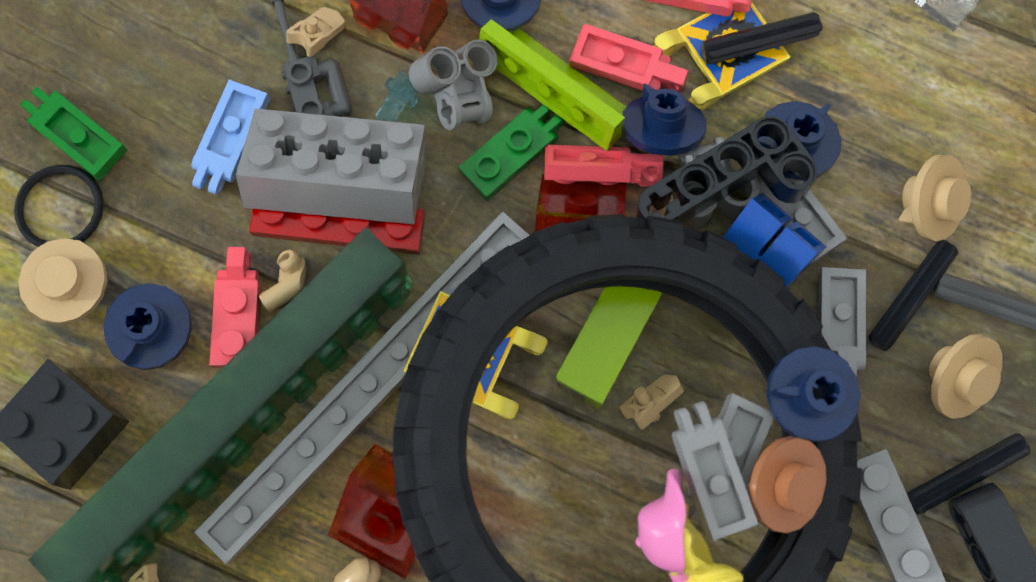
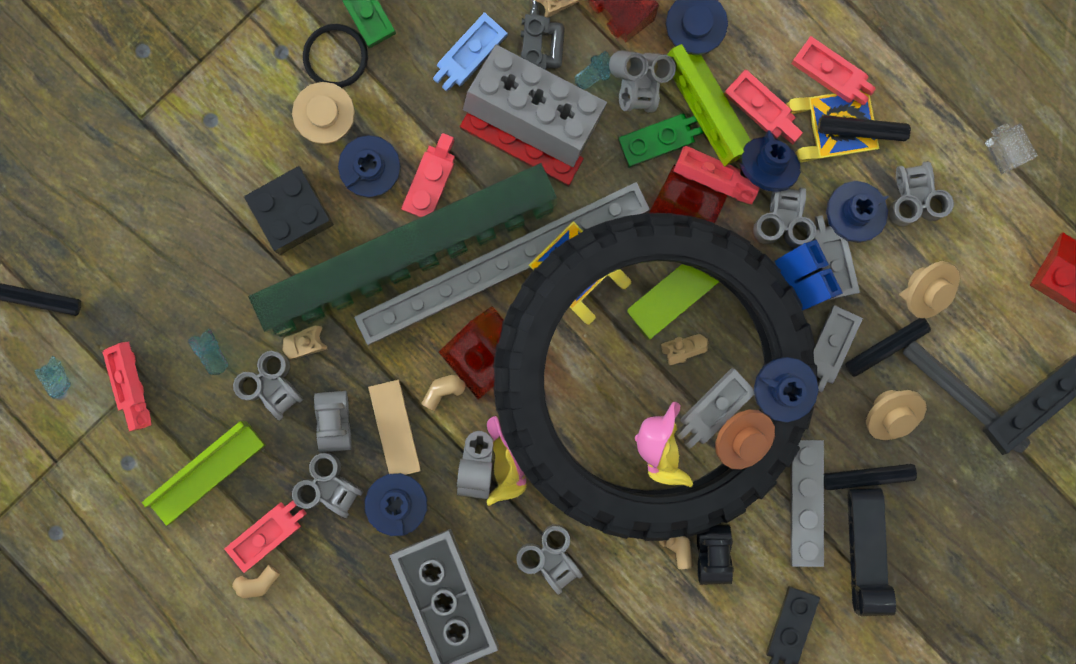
camera: 15 degrees right, 10 degrees up
(290, 281) = (475, 171): tan arm -> none
(712, 473) = (699, 414): light grey hinge -> none
(719, 182) = (788, 223): black beam -> none
(862, 88) = (917, 194): none -> light grey piece

